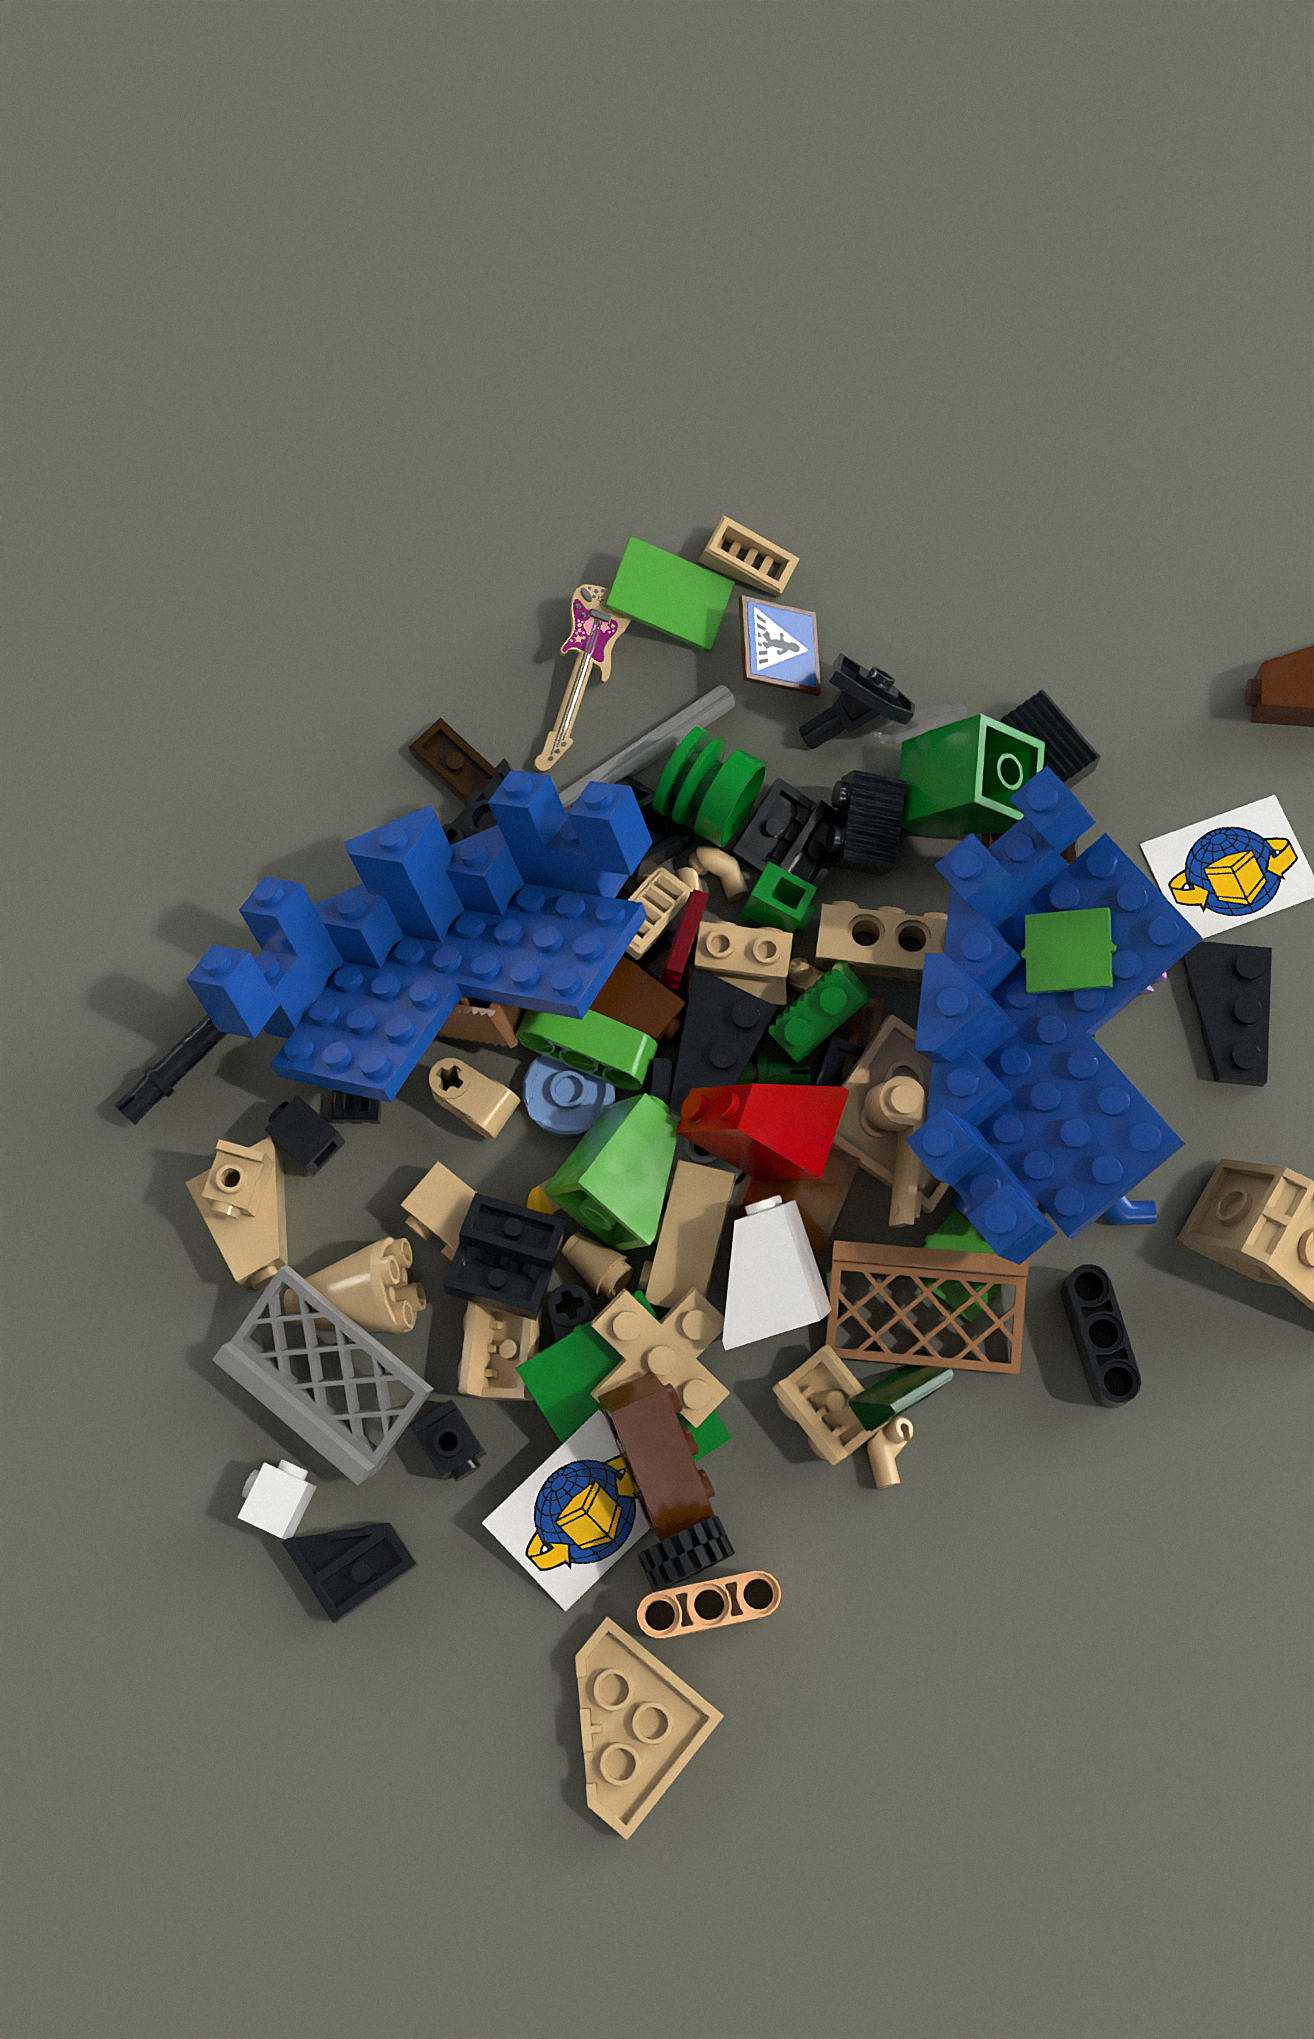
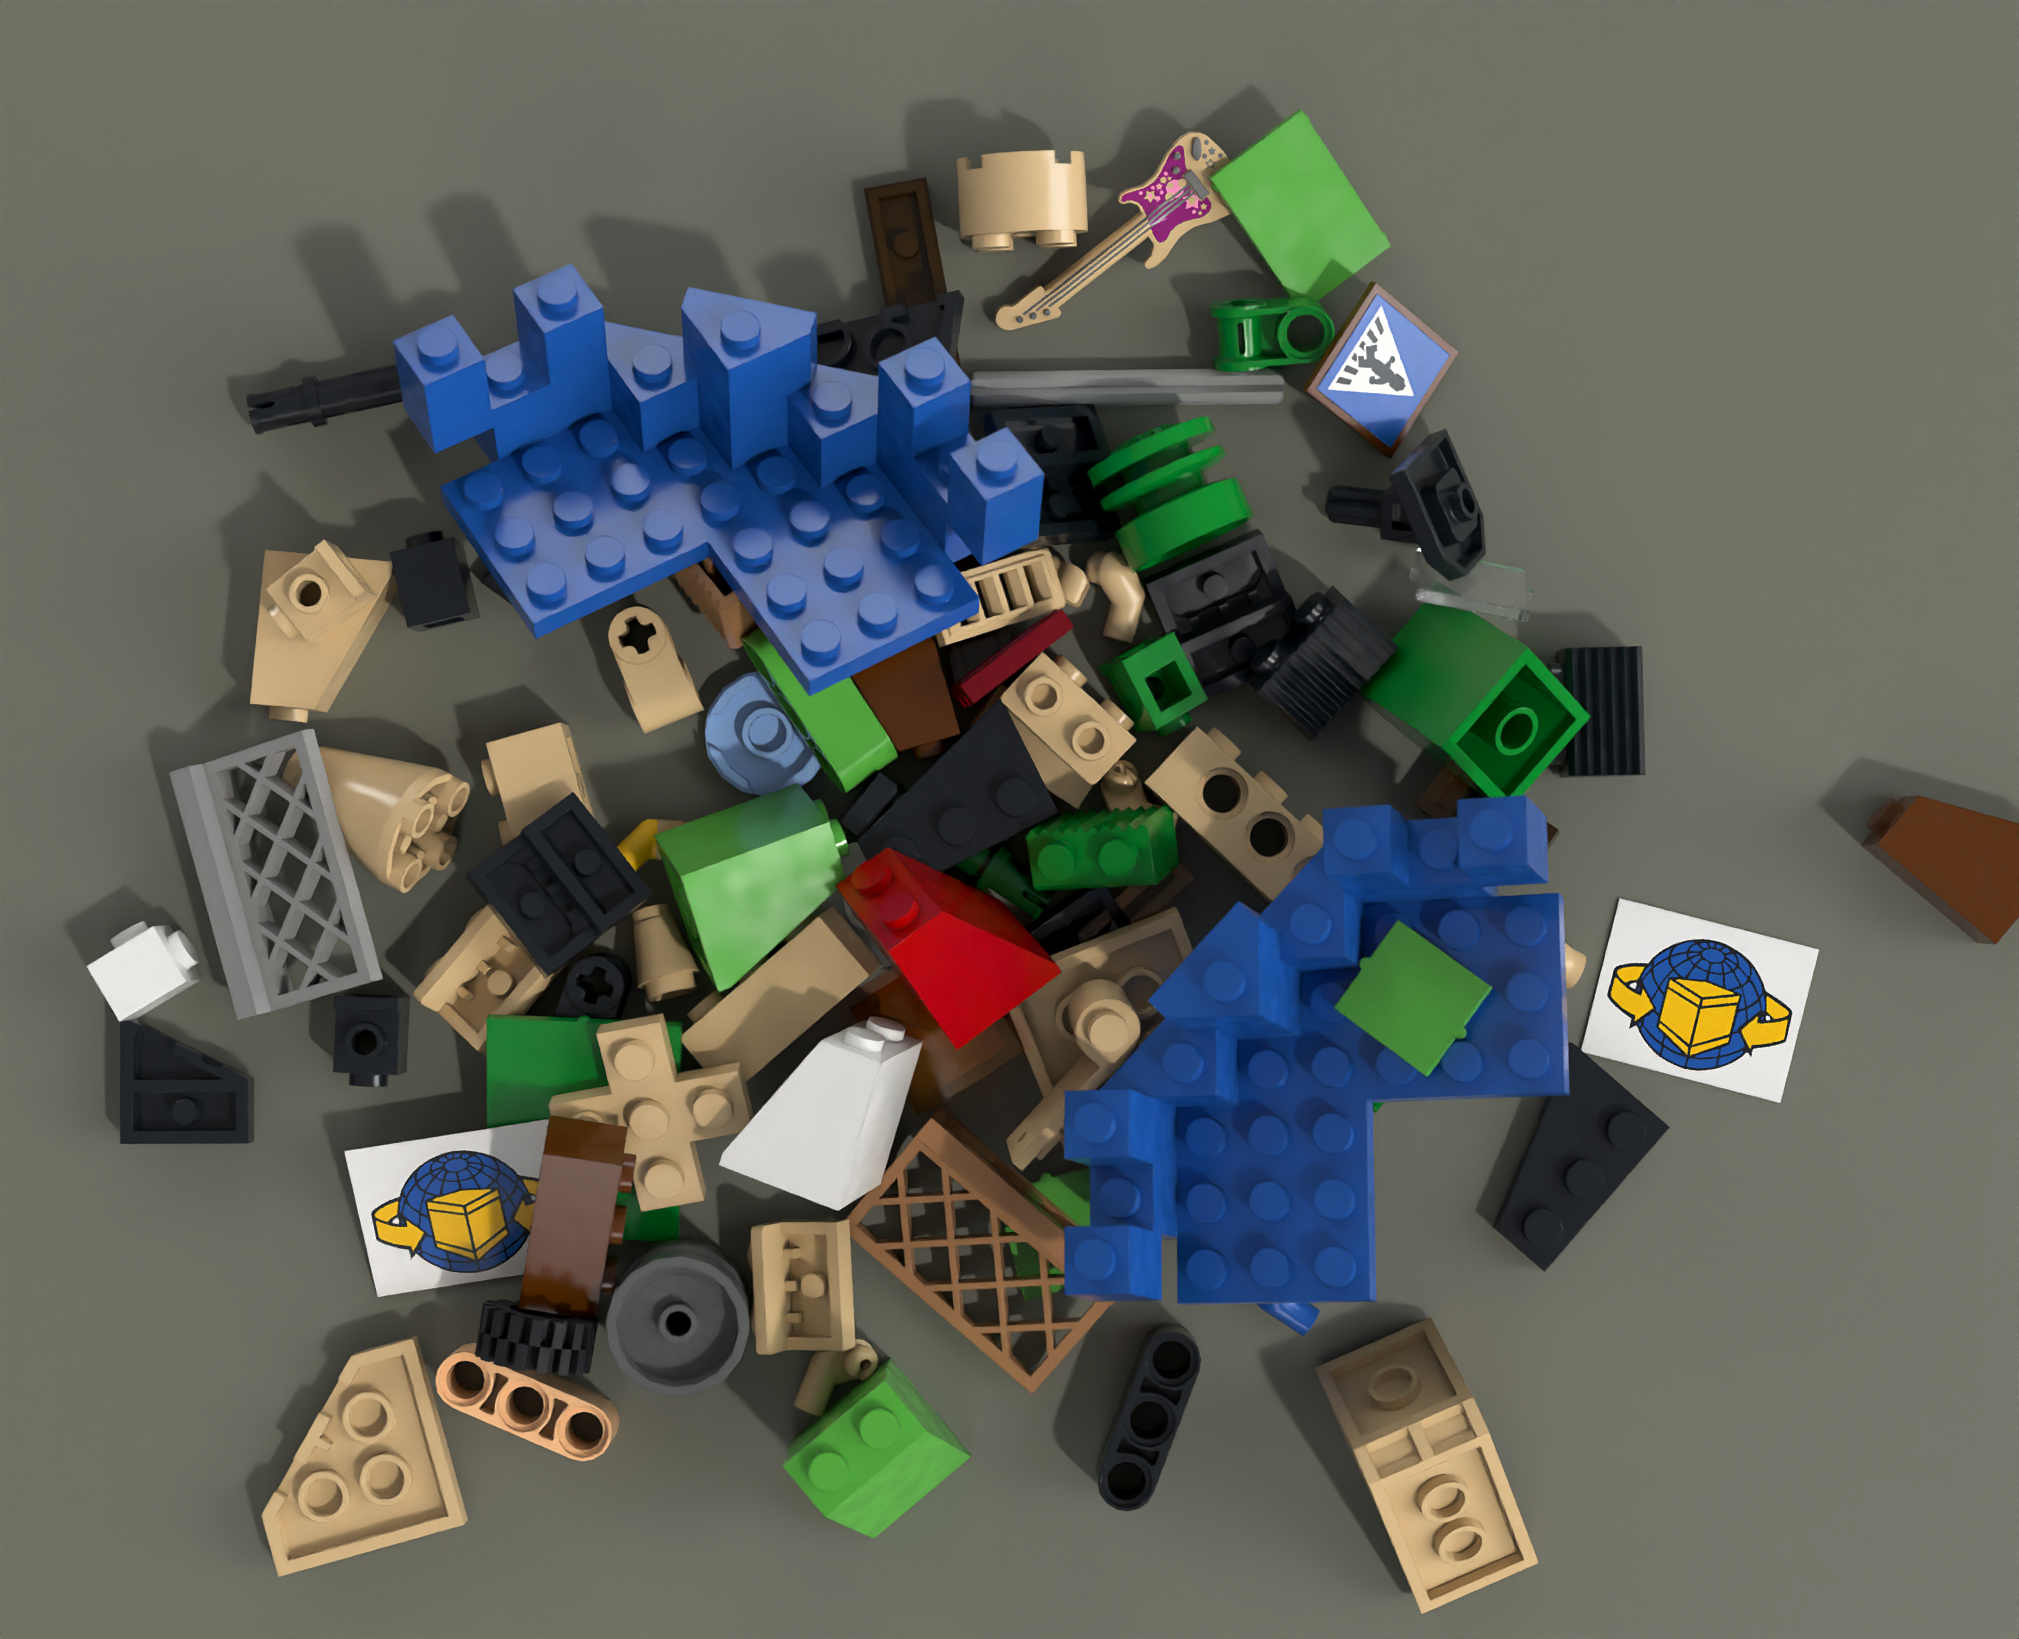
camera: 30 degrees right, 15 degrees up
(505, 686) = (1022, 198): none -> tan brick
(696, 671) = (1265, 332): none -> green piece
(743, 538) = (1408, 238): tan slope -> none
(792, 1461) = (679, 1356): none -> dark grey wheel
(897, 1394) = (882, 1328): dark green slope -> none
(952, 1473) = (874, 1453): none -> bright green slope

